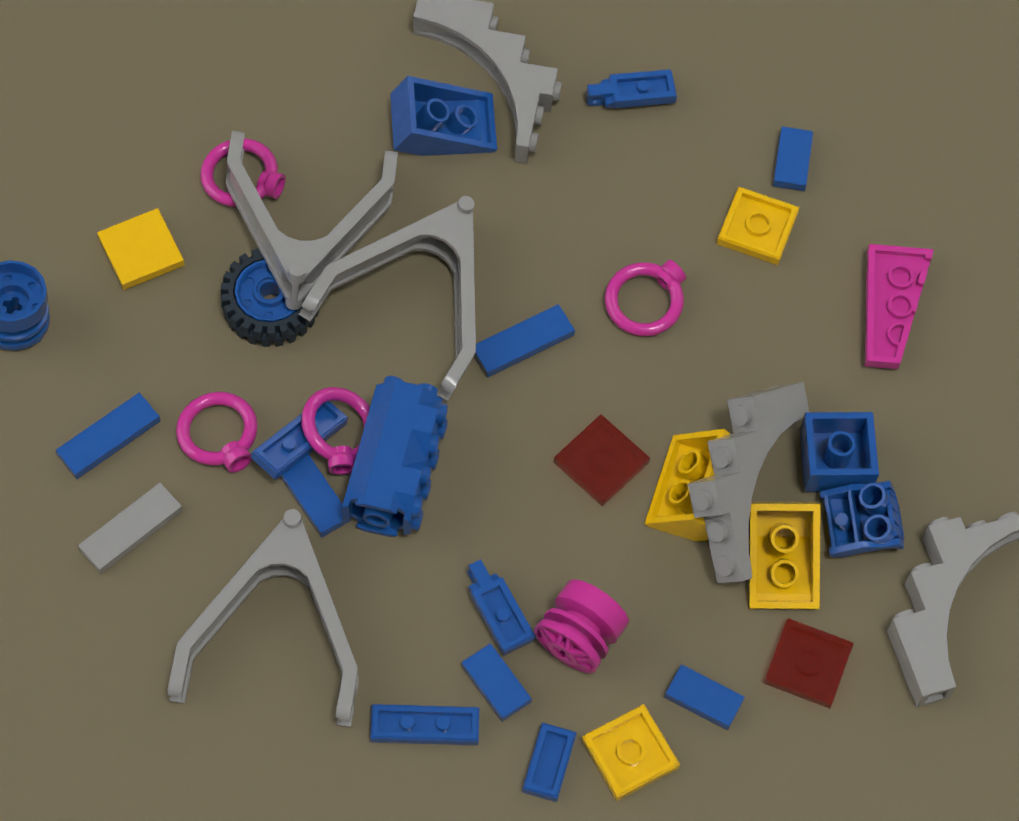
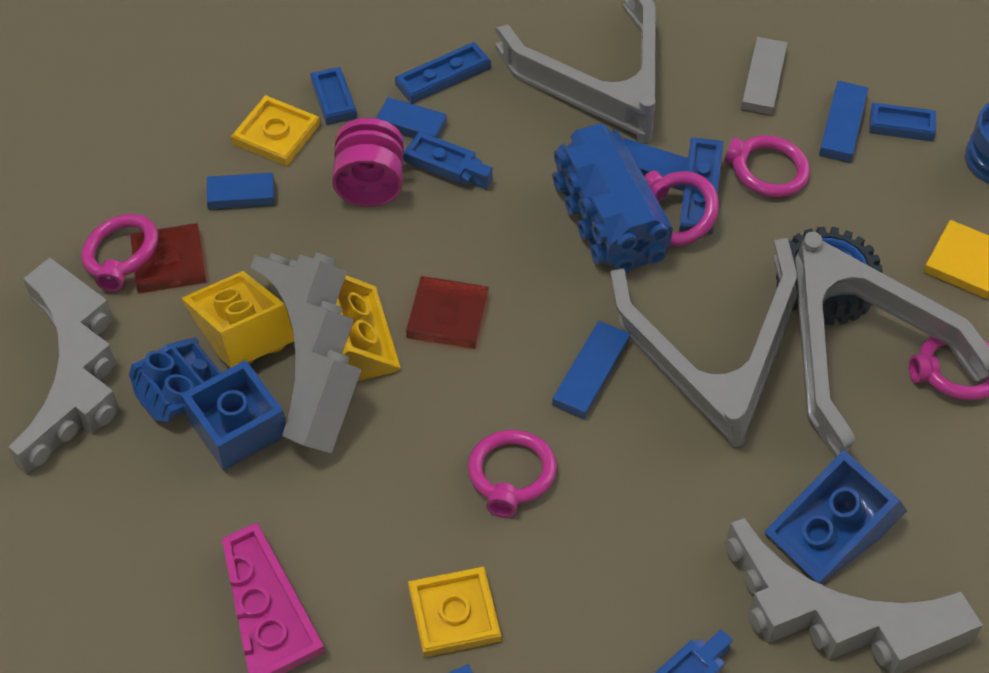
camera: 150 degrees right, 10 degrees down
(57, 404) = (902, 121): none -> blue tile
(870, 663) = (112, 273): none -> dark pink piece

